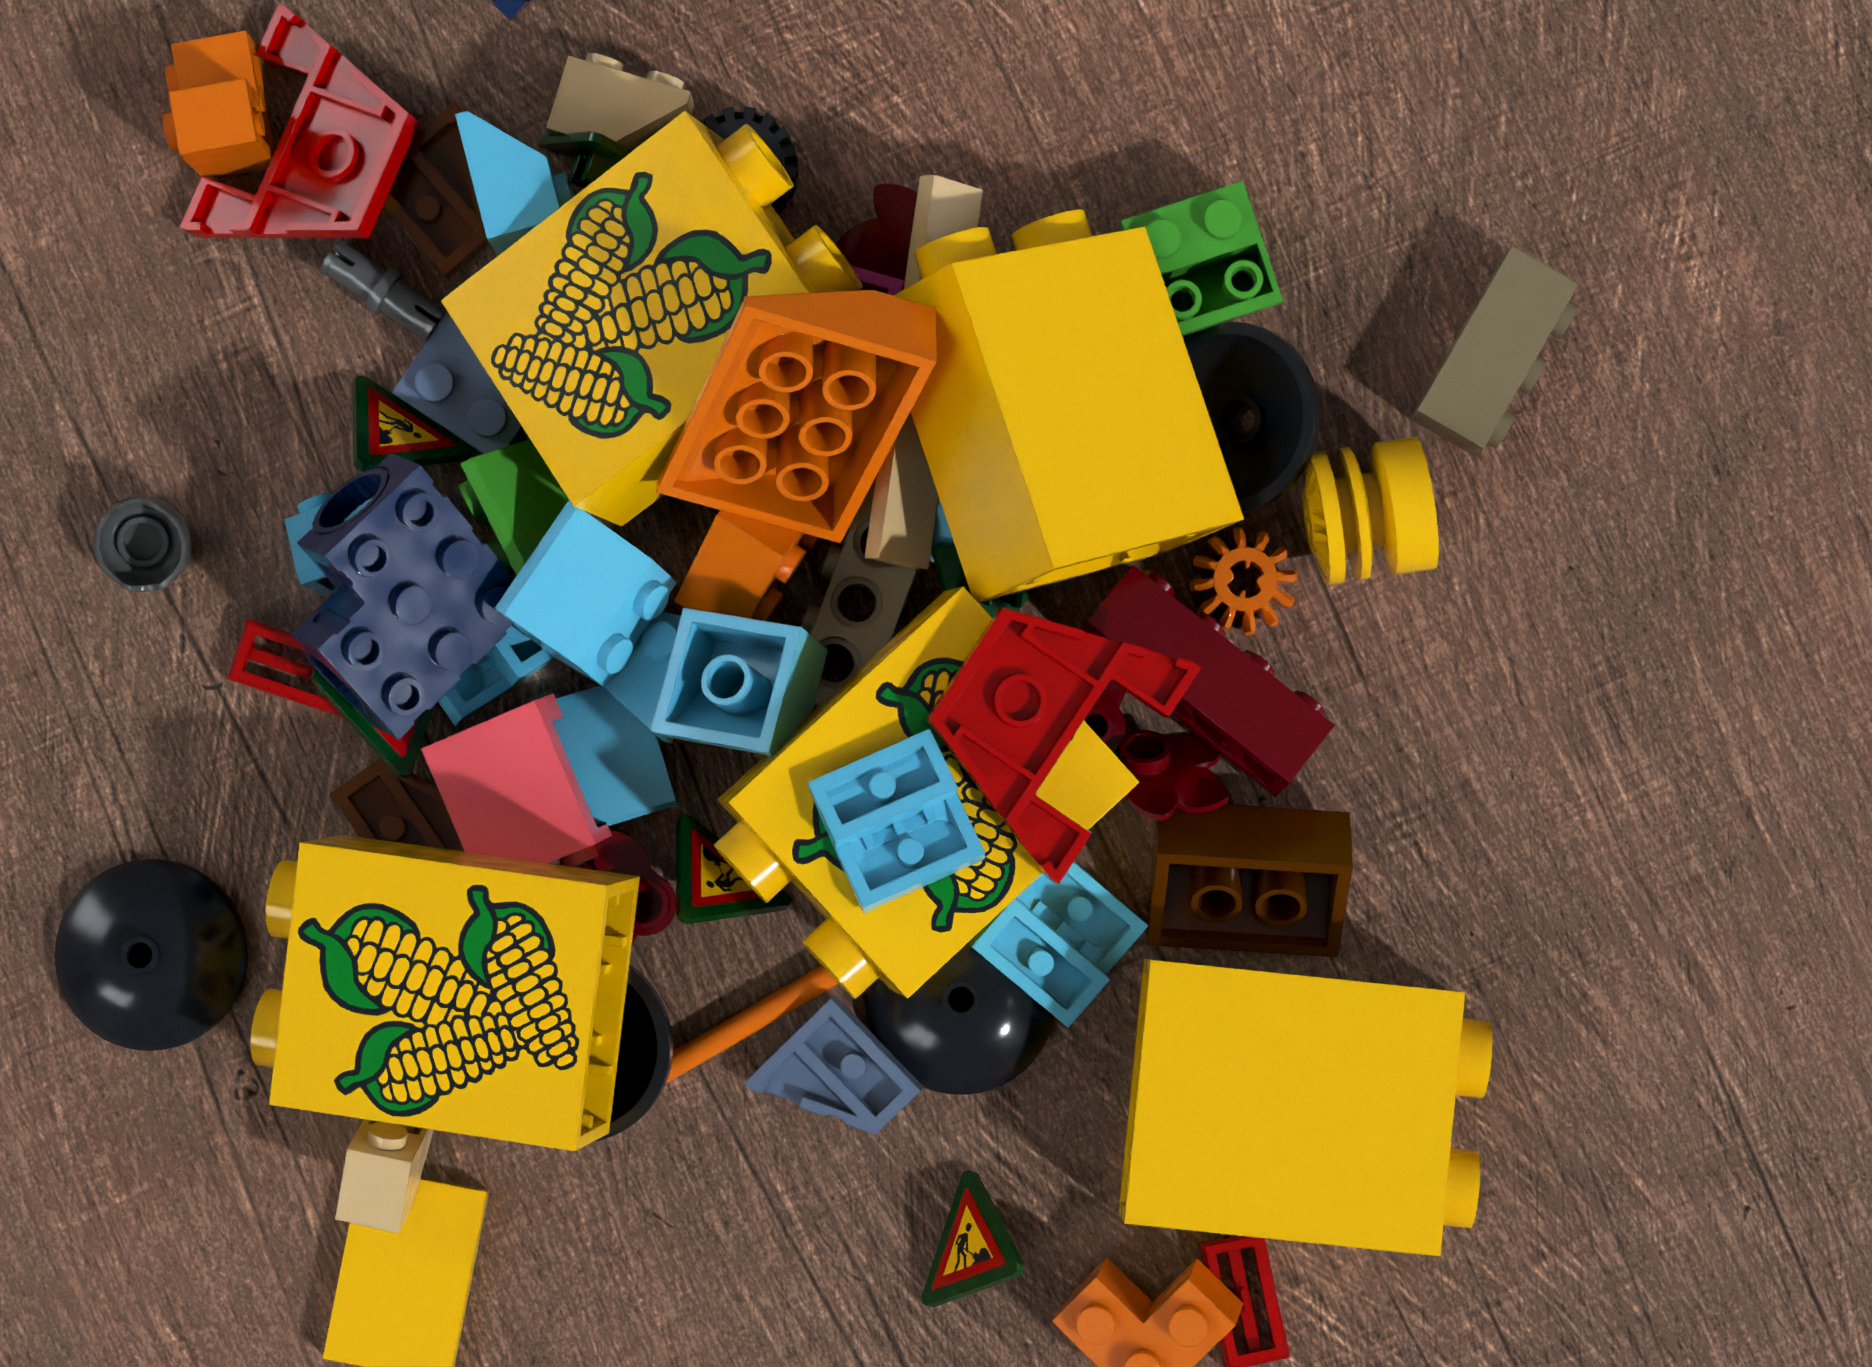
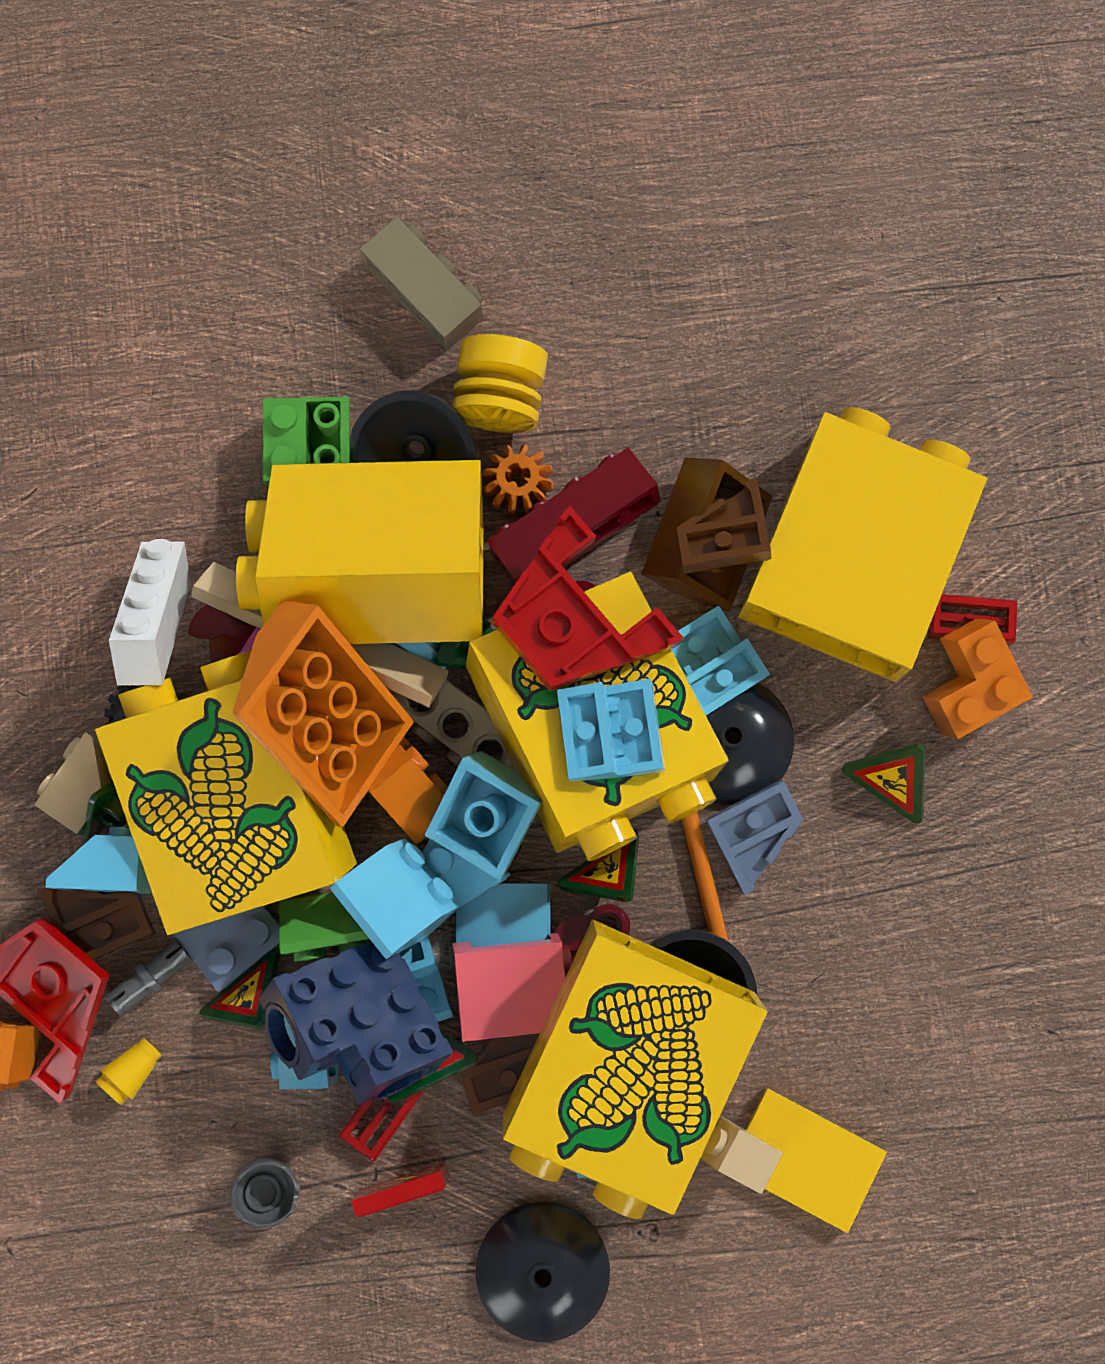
camera: 75 degrees left, 5 degrees down
(199, 727) = (400, 1189): none -> red tile
(249, 306) = (129, 1071): none -> yellow cone
(878, 128) = (150, 613): none -> white brick
(1171, 774) = (628, 554): dark red plate -> none
(1241, 902) = (726, 533): none -> reddish brown wing

